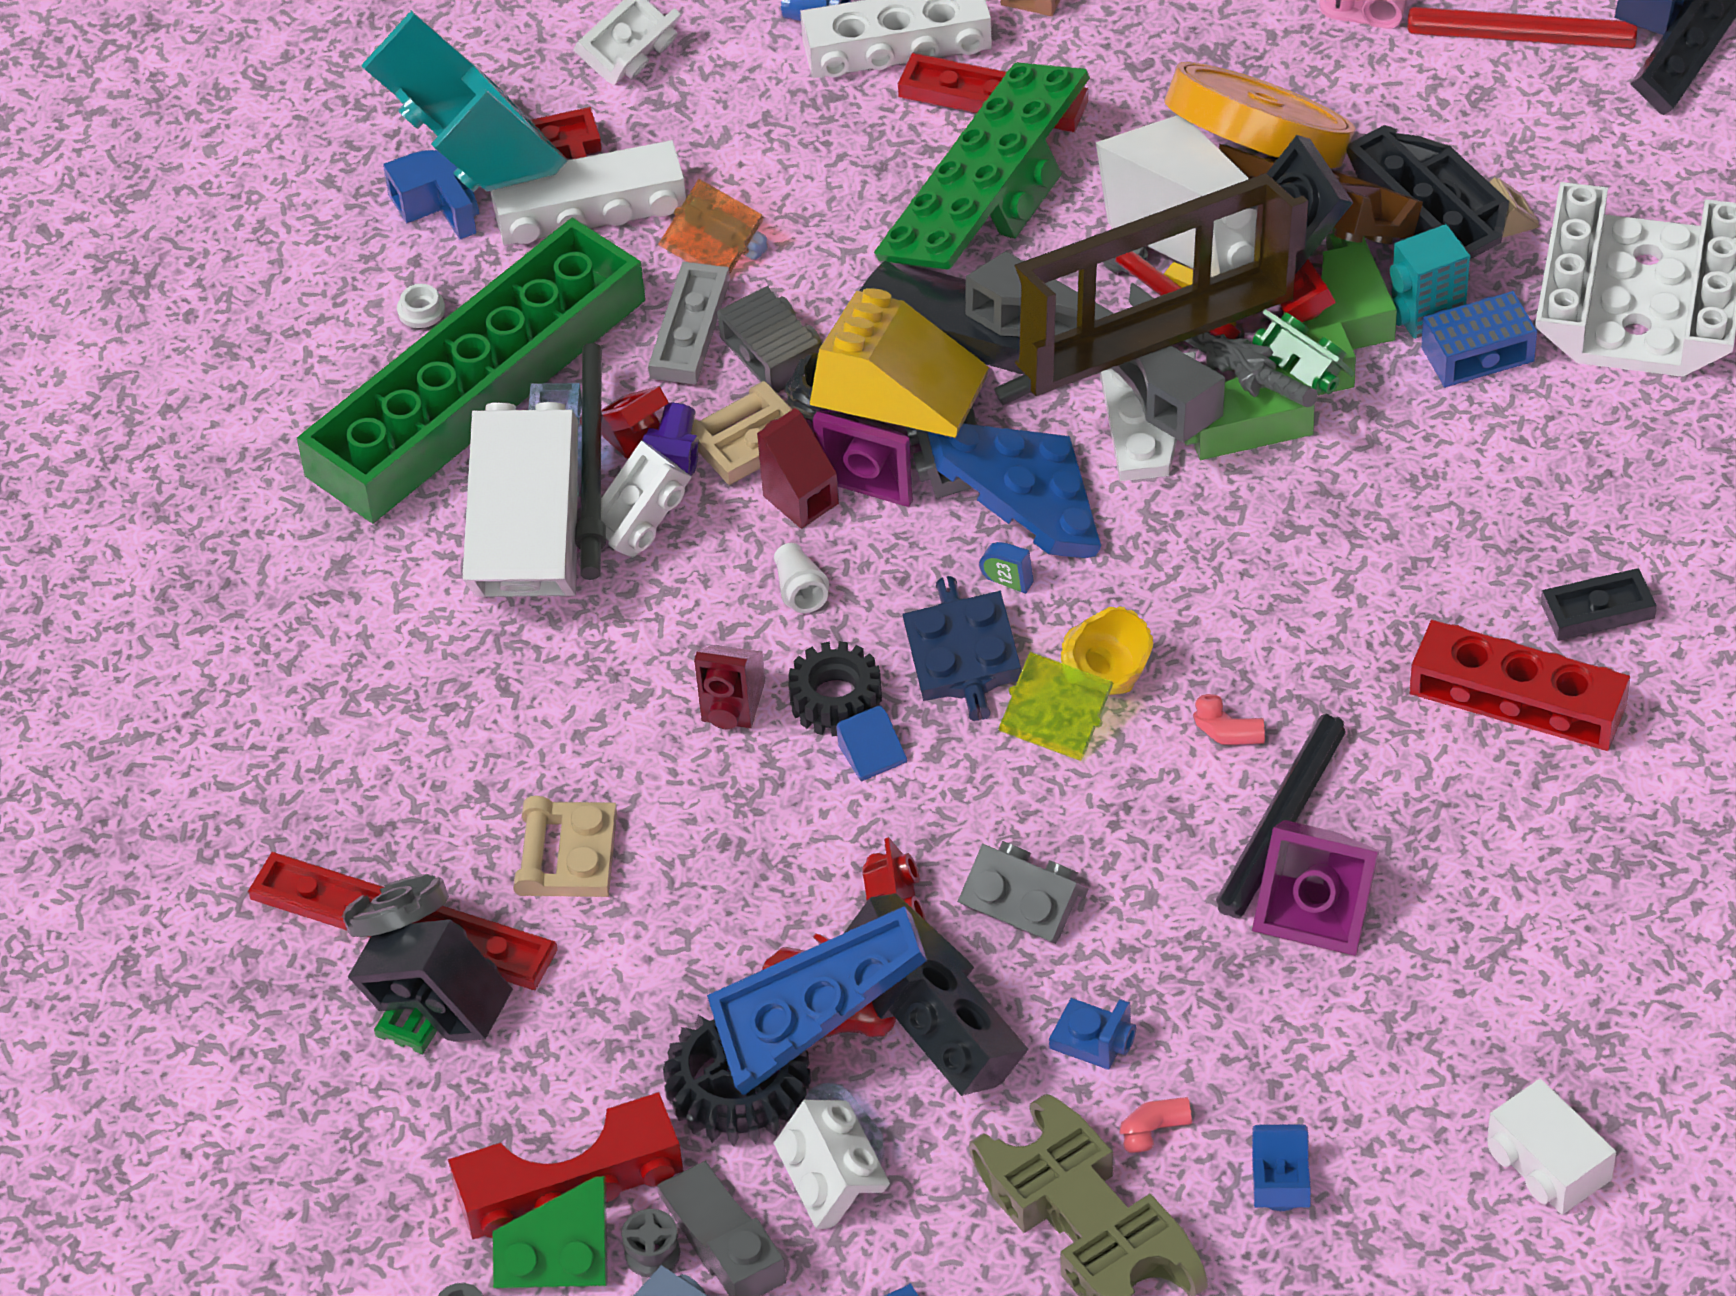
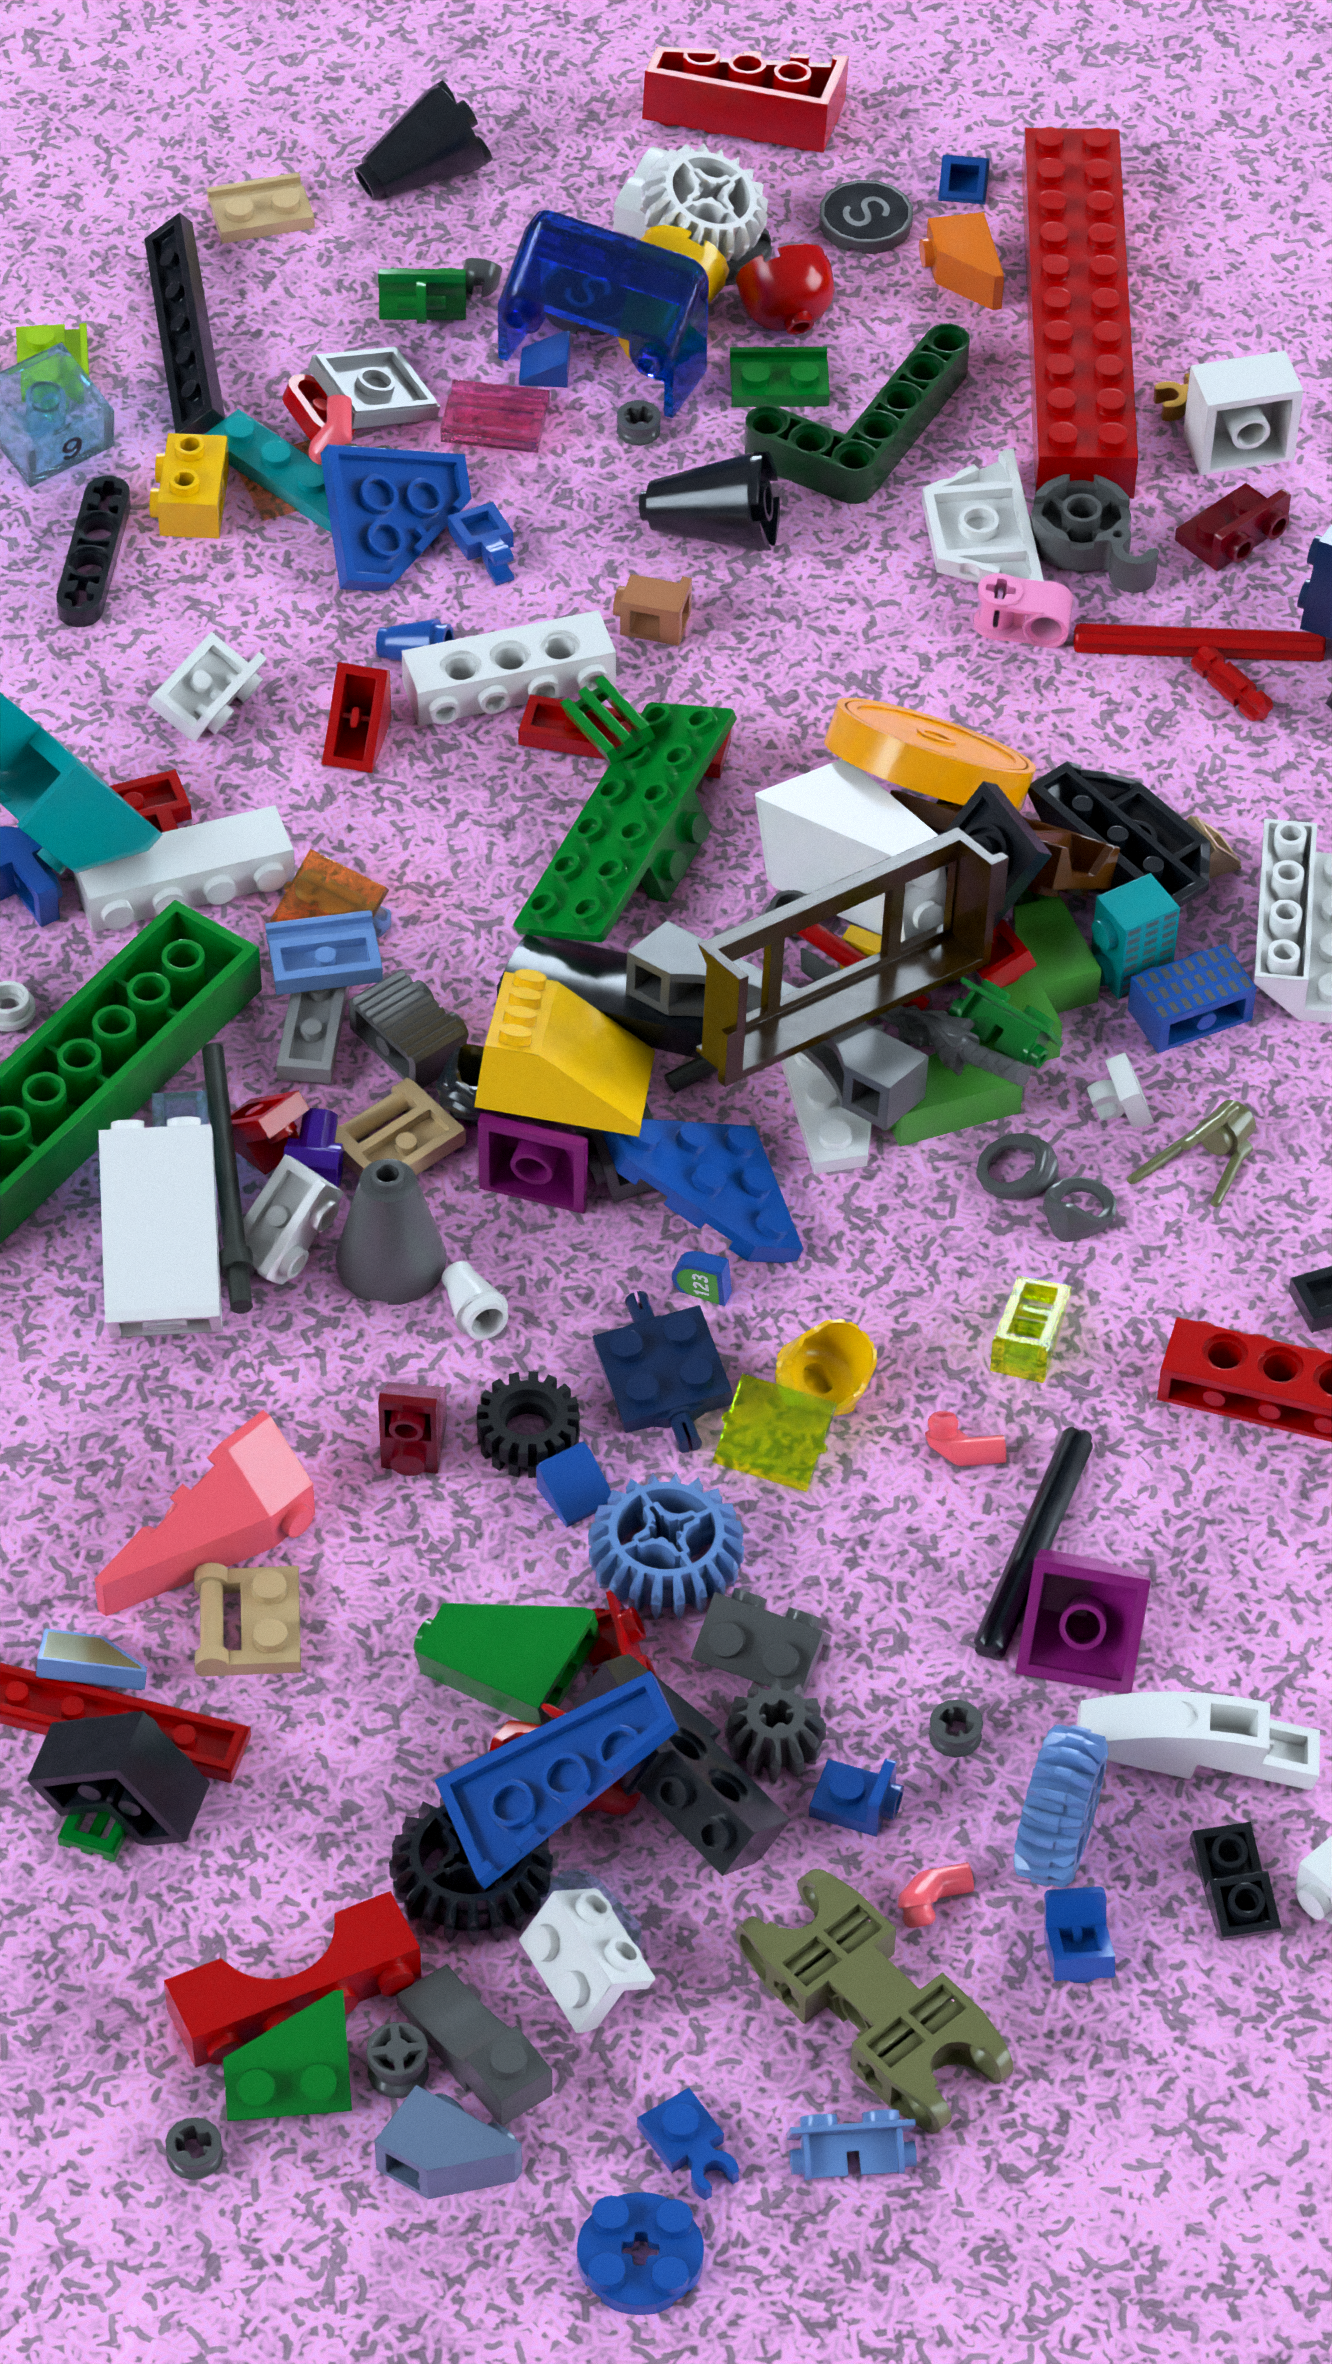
camera: 10 degrees left, 0 degrees up
(396, 906) = (72, 1697): dark grey tile -> none
(400, 863) = (88, 1661): none -> tile
(561, 751) = (234, 1512): none -> coral wedge
(699, 268) = (323, 952): none -> medium blue plate
(729, 518) = (390, 1237): none -> dark grey cone
(756, 67) = (357, 717): none -> red slope
(792, 887) = (508, 1653): none -> green slope
(796, 469) = (459, 1178): dark red slope -> none
(936, 814) = (657, 1561): none -> medium blue gear
(964, 60) = (593, 701): none -> green tile
(1025, 969) = (775, 1730): none -> dark grey gear
(1185, 963) = (955, 1745): none -> dark grey bush
(1274, 1049) = (1060, 1805): none -> medium blue gear
(1291, 649) = (1025, 1356): none -> clear neon green slope
(1316, 496) = (1034, 1181): none -> dark grey piece
(1348, 533) = (1068, 1220): none -> dark grey piece
(1401, 988) = (1188, 1729): none -> white slope
(1405, 421) = (1120, 1094): none -> white tile
(1432, 1128) = (1234, 1881): none -> black slope
(1492, 460) = (1220, 1133): none -> olive plant
(1547, 64) = (1231, 683): none -> red axle

